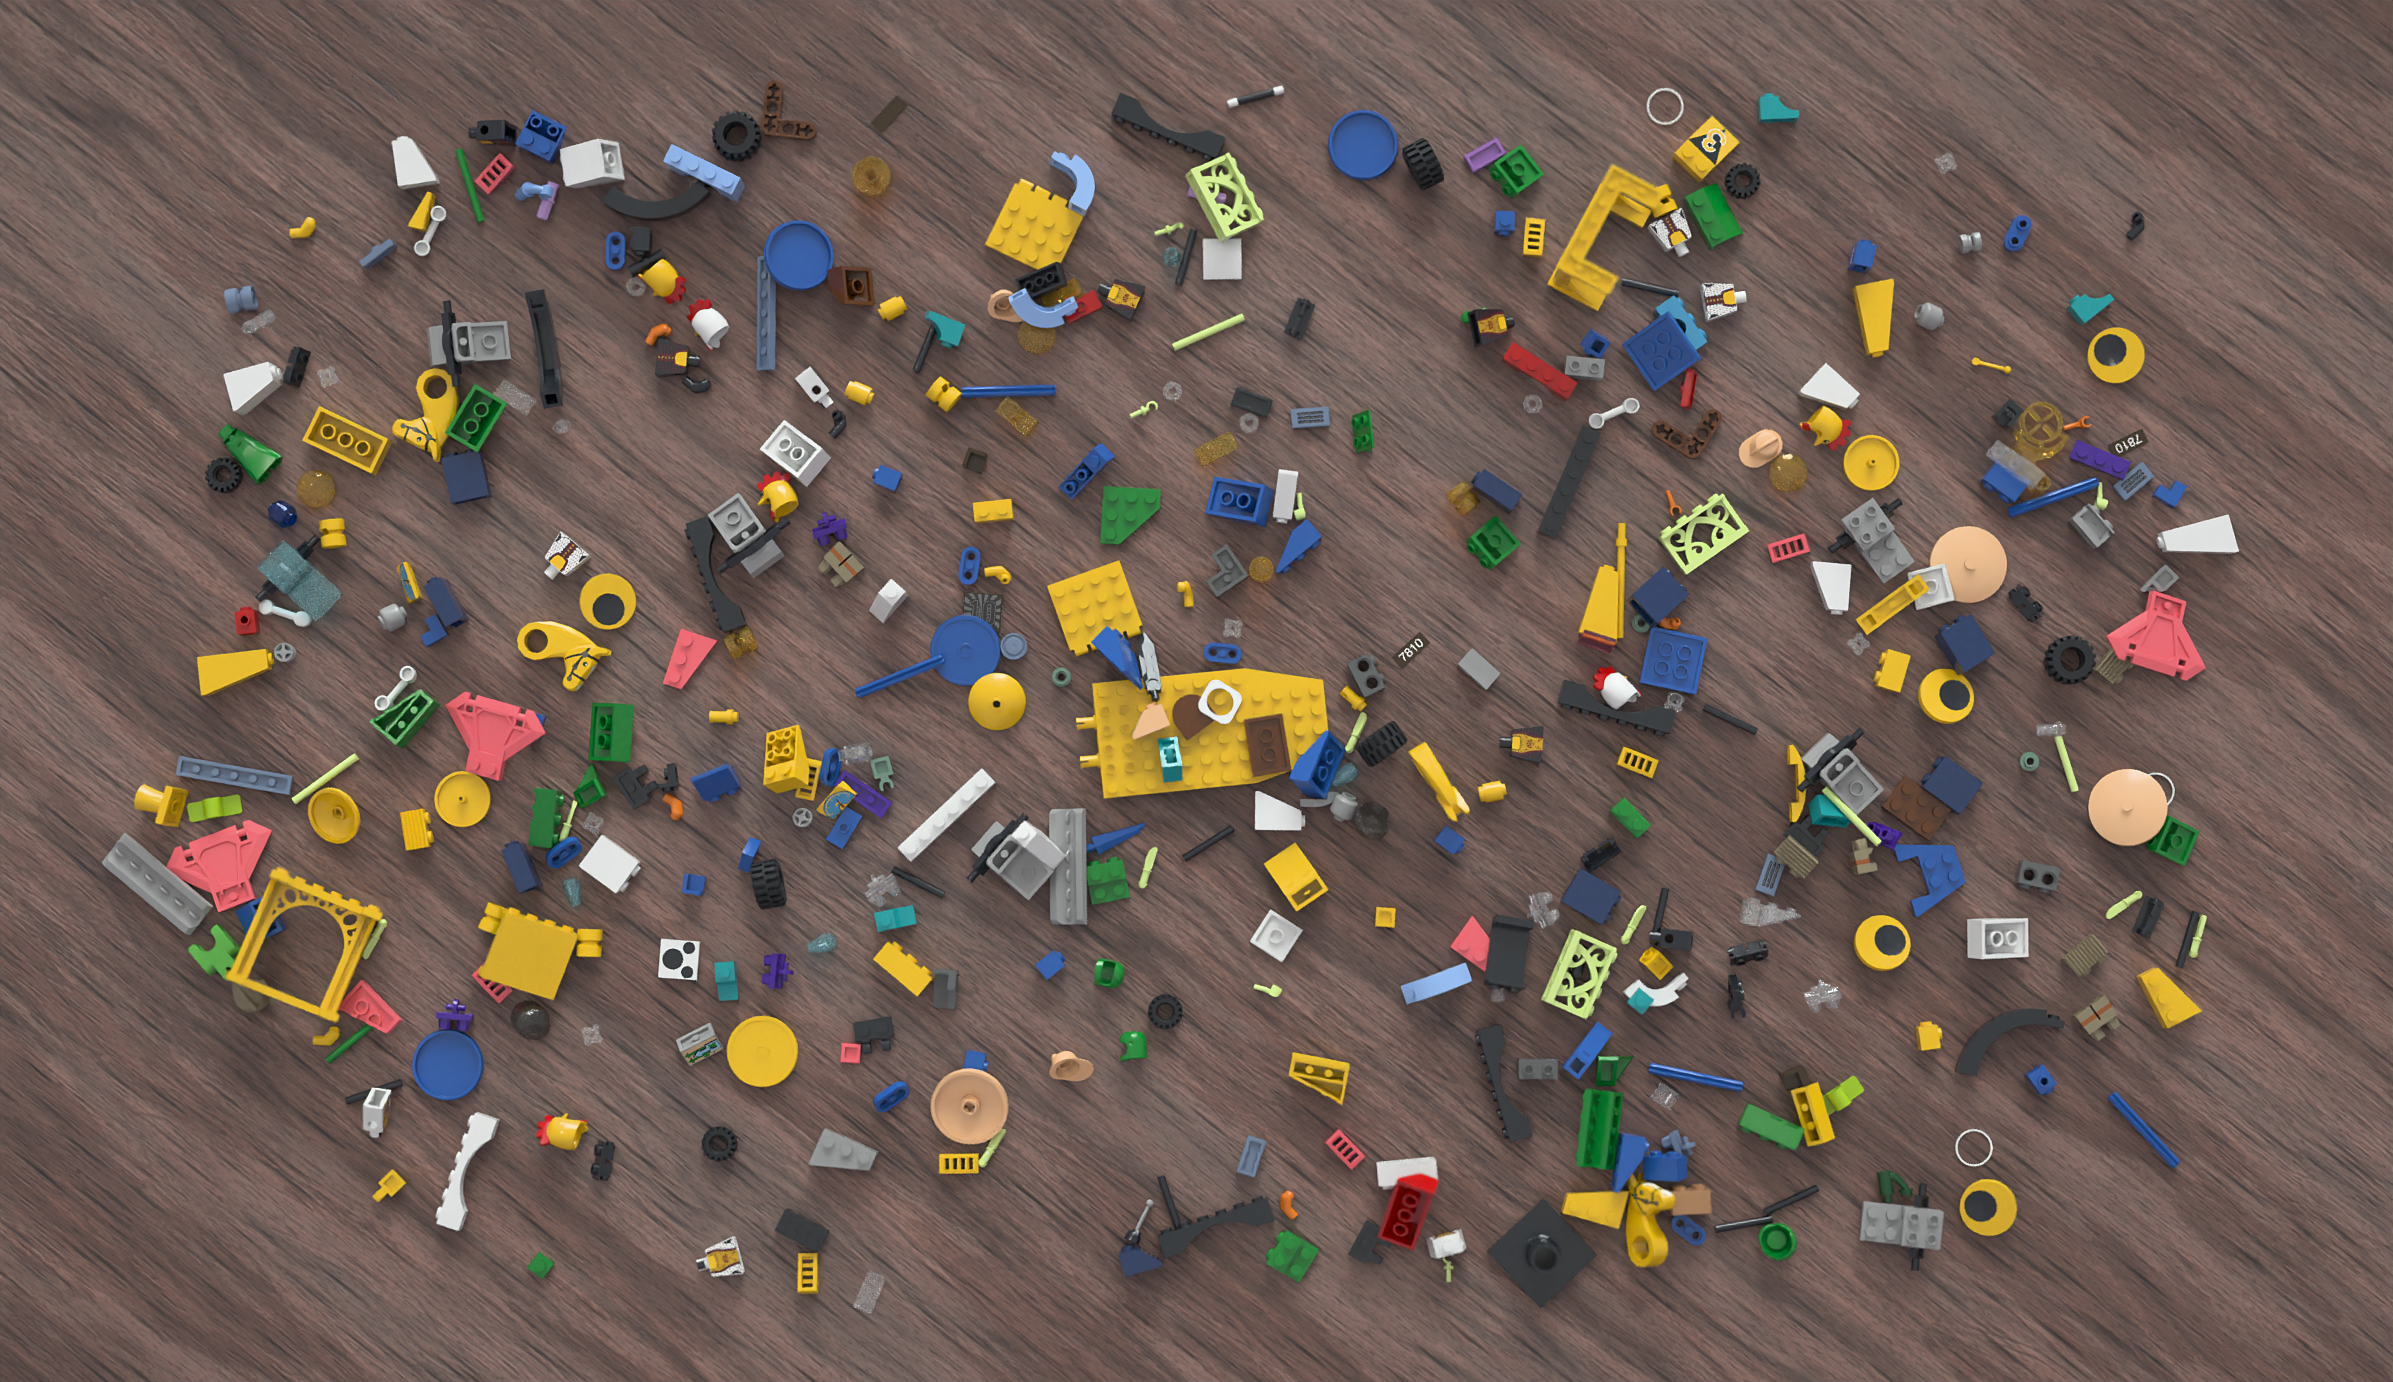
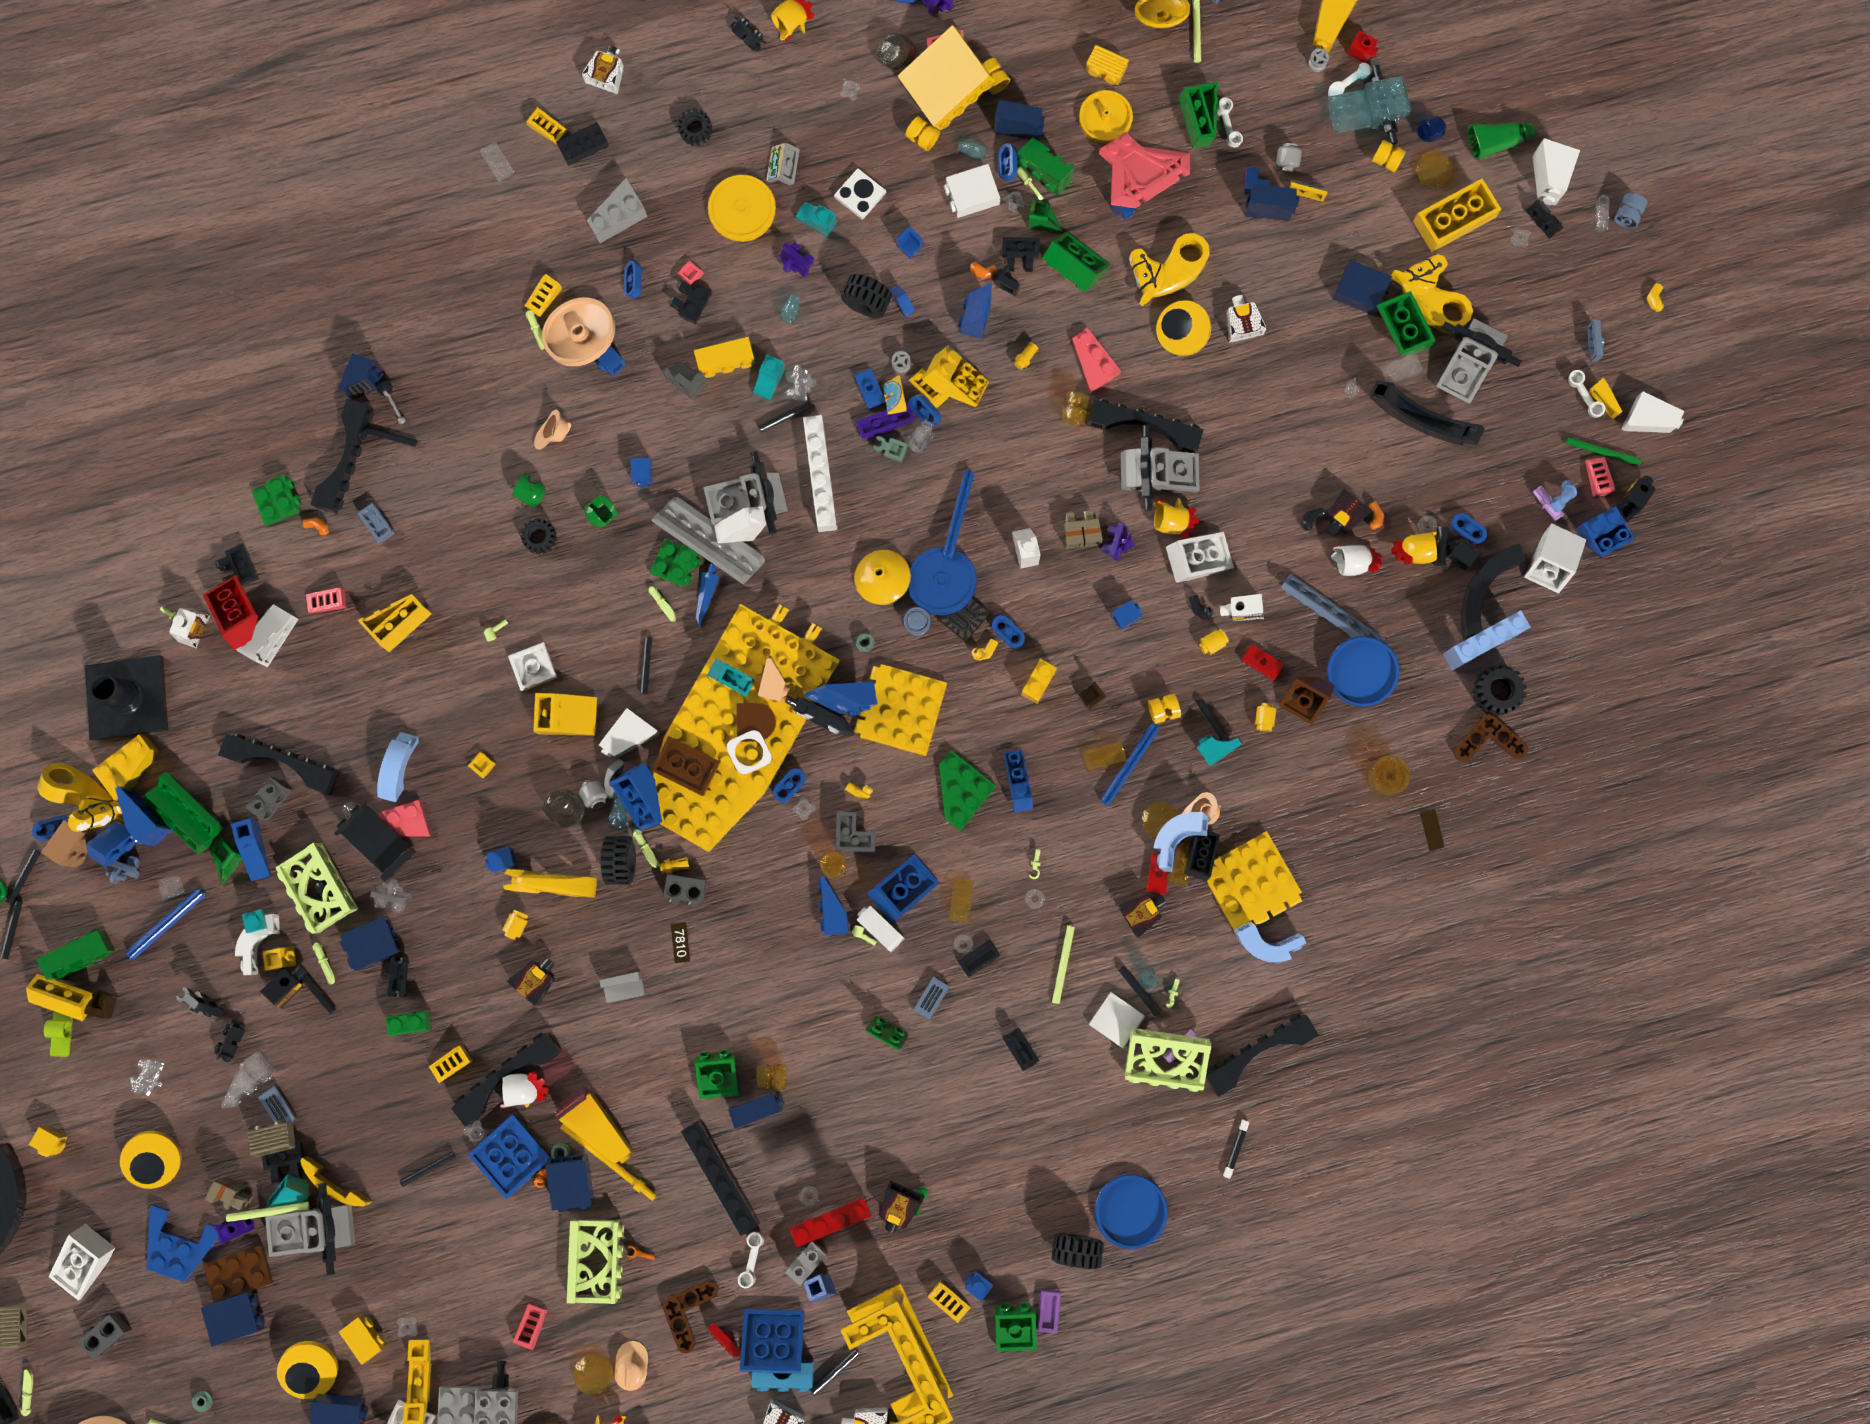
camera: 130 degrees right, 5 degrees down
(212, 472) = (1498, 96): black tyre -> none
(847, 342) = (1262, 662): none -> red plate
(1833, 585) = (470, 1342): white slope -> none

